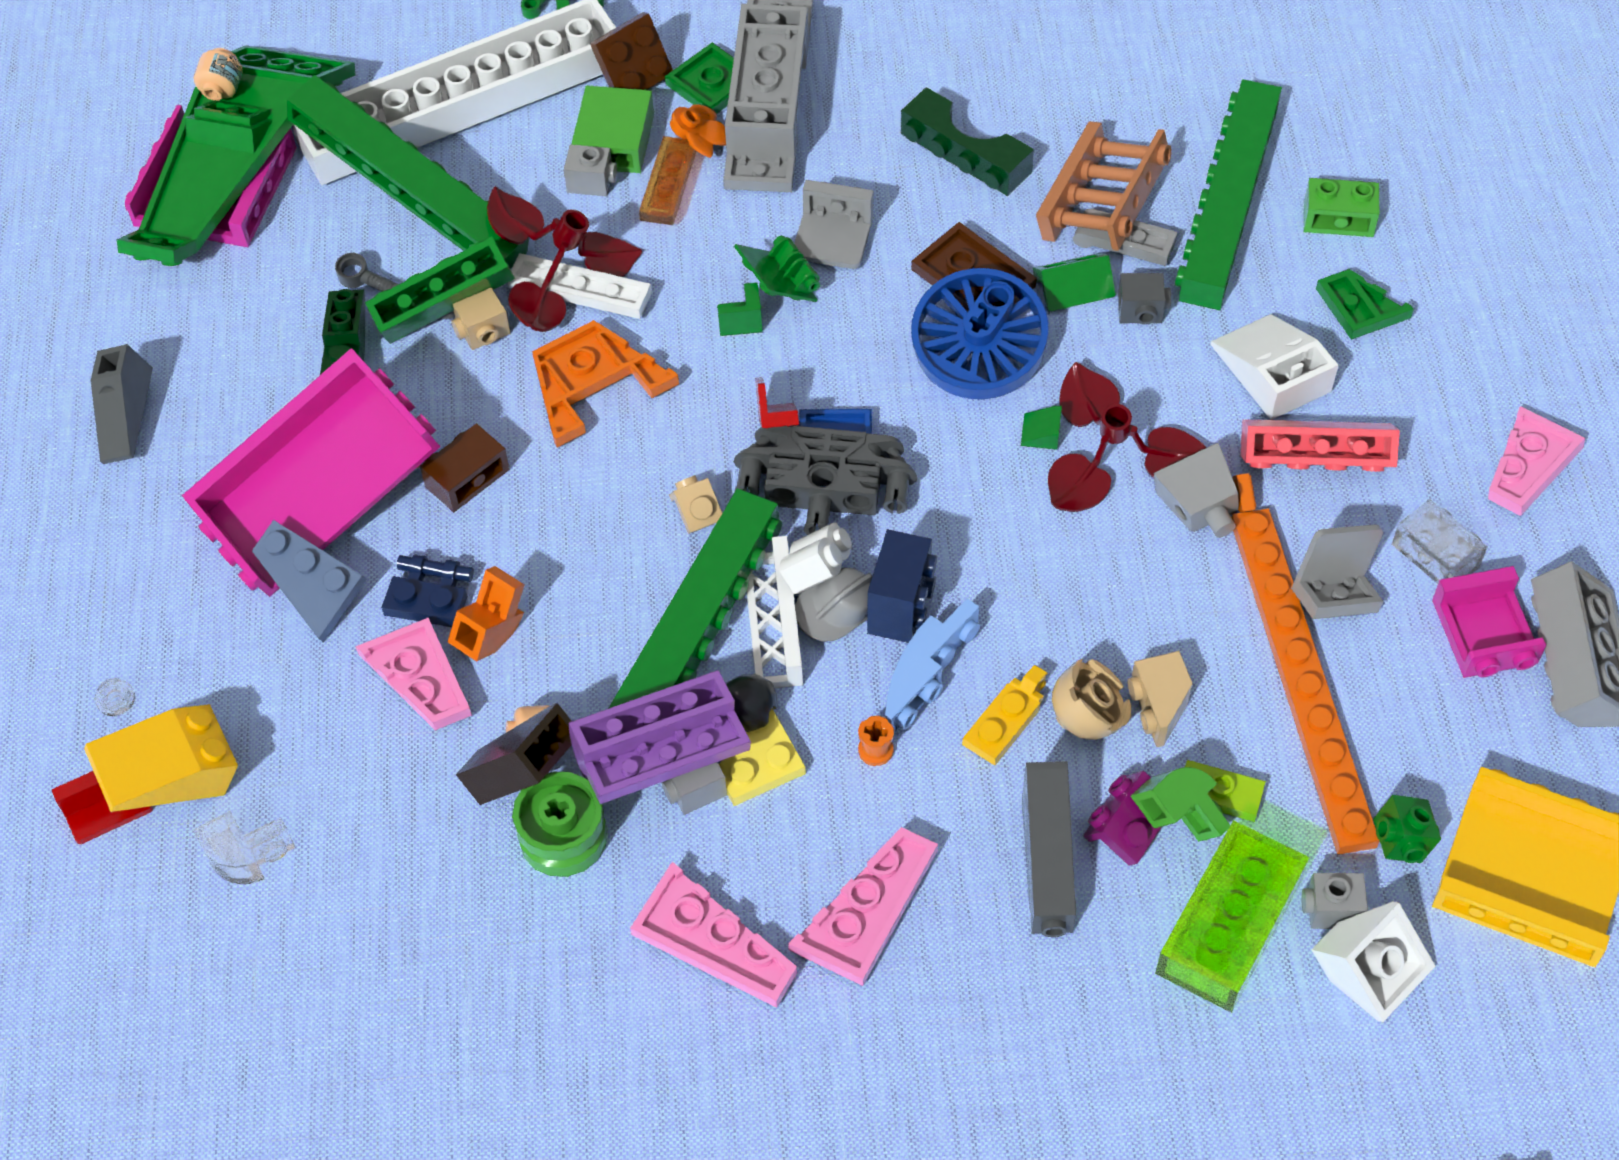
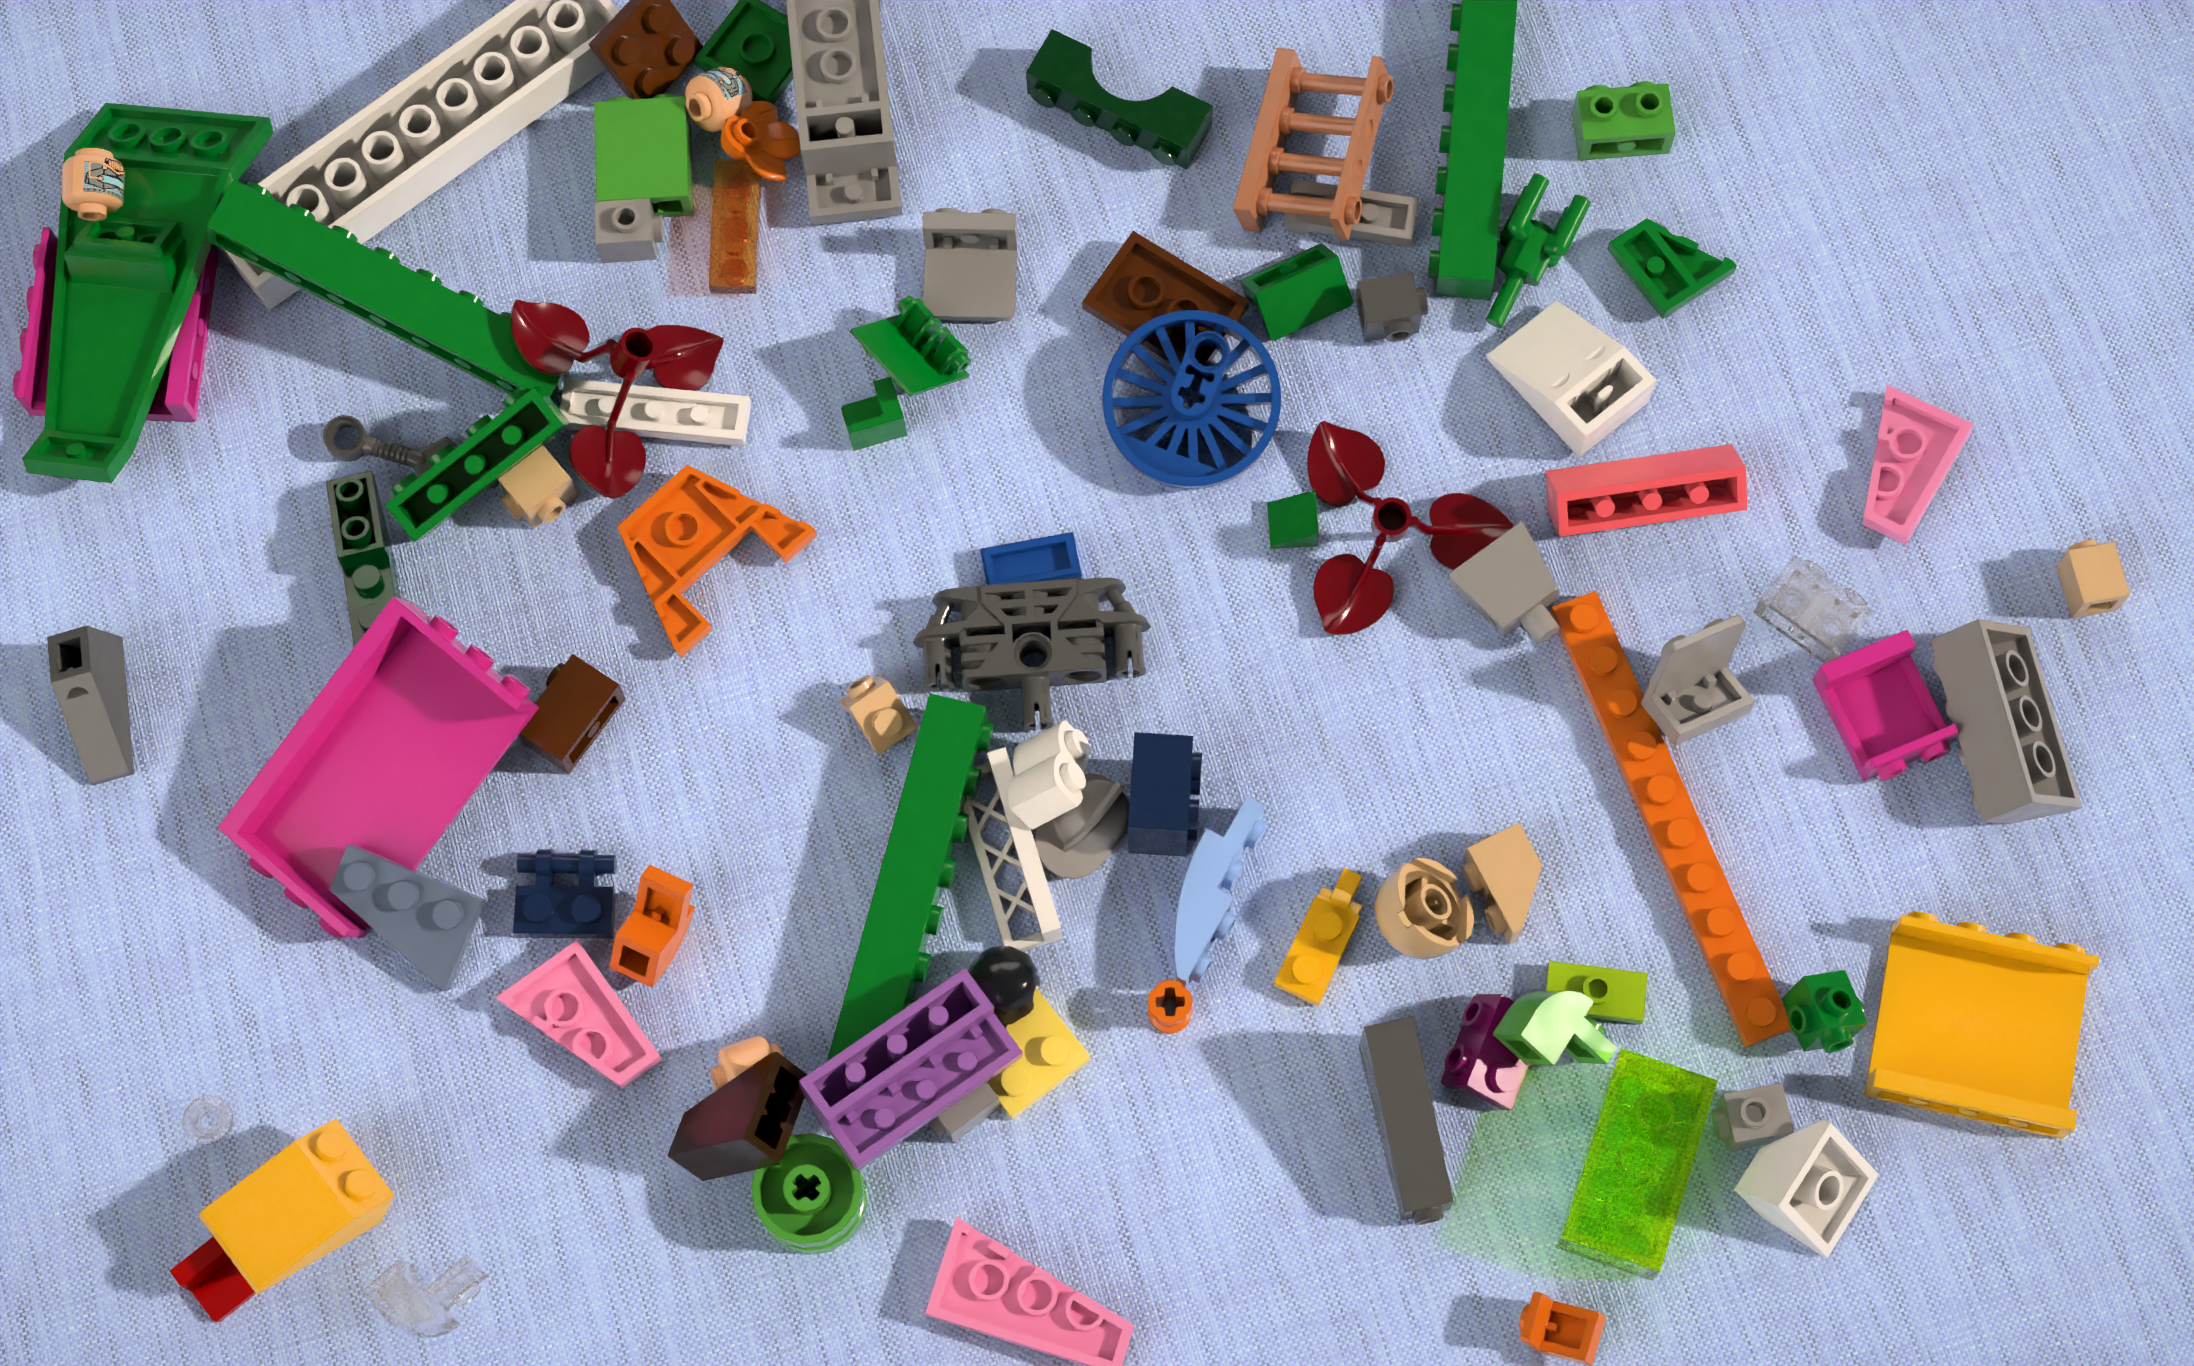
camera: 10 degrees left, 15 degrees up
(673, 93) = (717, 97): none -> light nougat head
(774, 415) = (954, 567): red panel -> none
(863, 916) = (1198, 1242): bright pink wing -> none
(1148, 1033) = (1561, 1329): none -> orange bracket
(1245, 492) = (1562, 573): orange tile -> none
(1258, 273) = (1532, 245): none -> green plant

